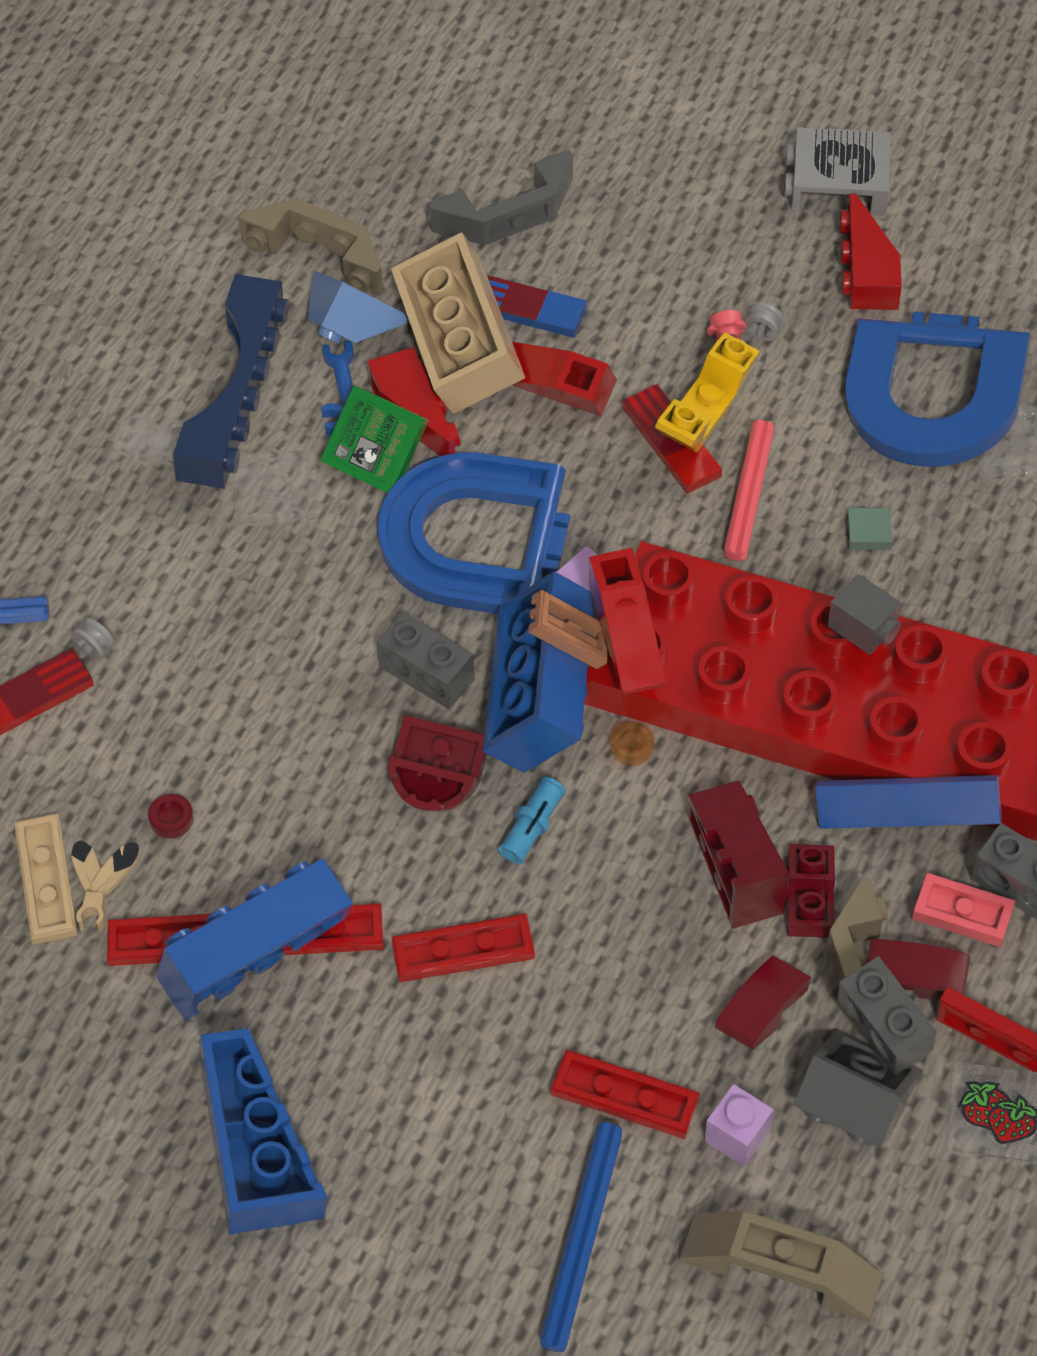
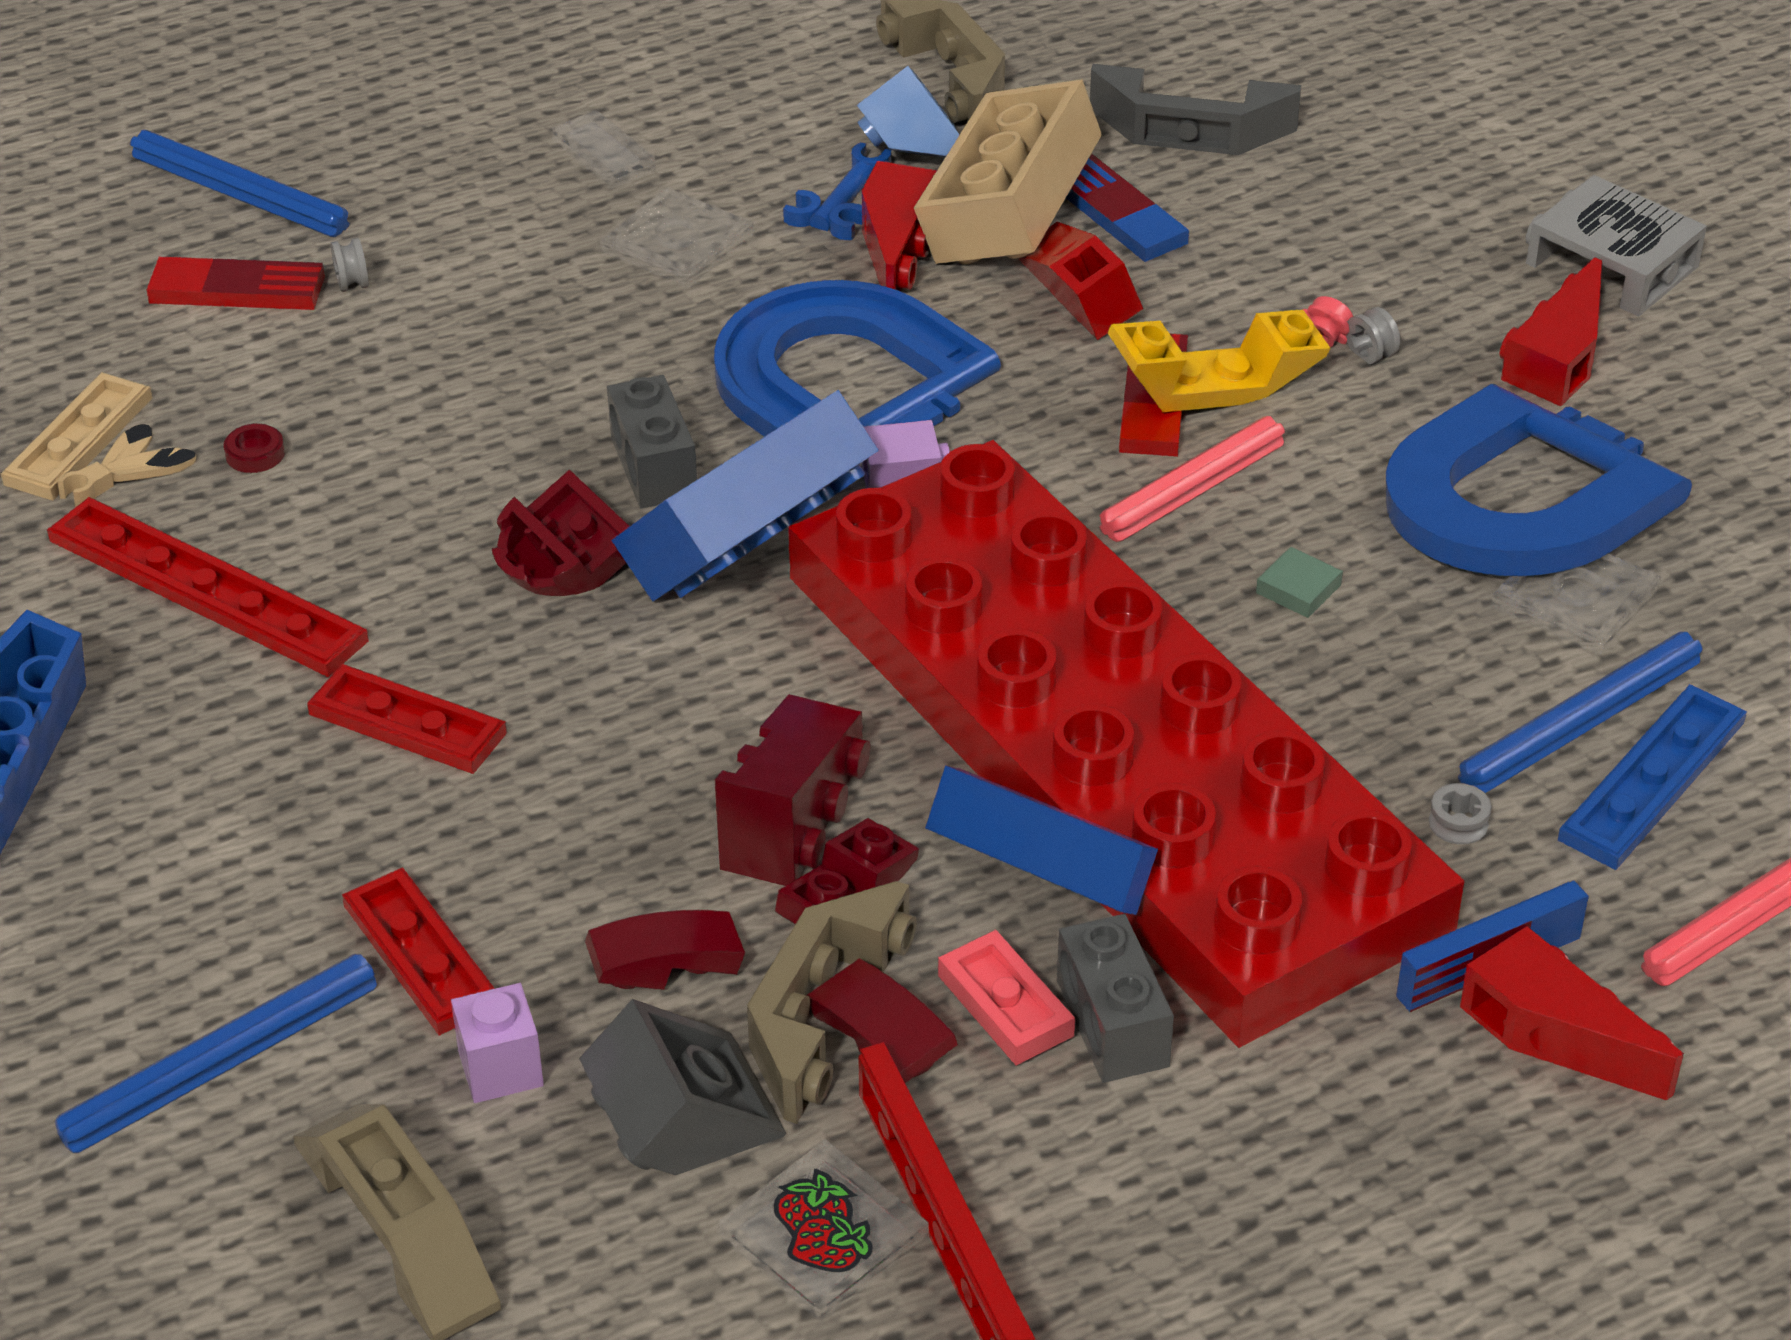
camera: 35 degrees right, 15 degrees down
(211, 439) = (649, 153): dark blue arch -> none
(251, 935) = (181, 564): blue wedge -> none
(374, 439) = (815, 231): green tile -> none
(543, 799) = (607, 642): dark azure pin -> none
(568, 635) = (790, 453): nougat tile -> none
(626, 620) = (864, 464): red slope -> none
(632, 744) = (799, 637): clear orange tile -> none
(865, 614) = (1151, 600): dark grey brick -> none
(886, 1015) = (759, 1010): dark grey brick -> none

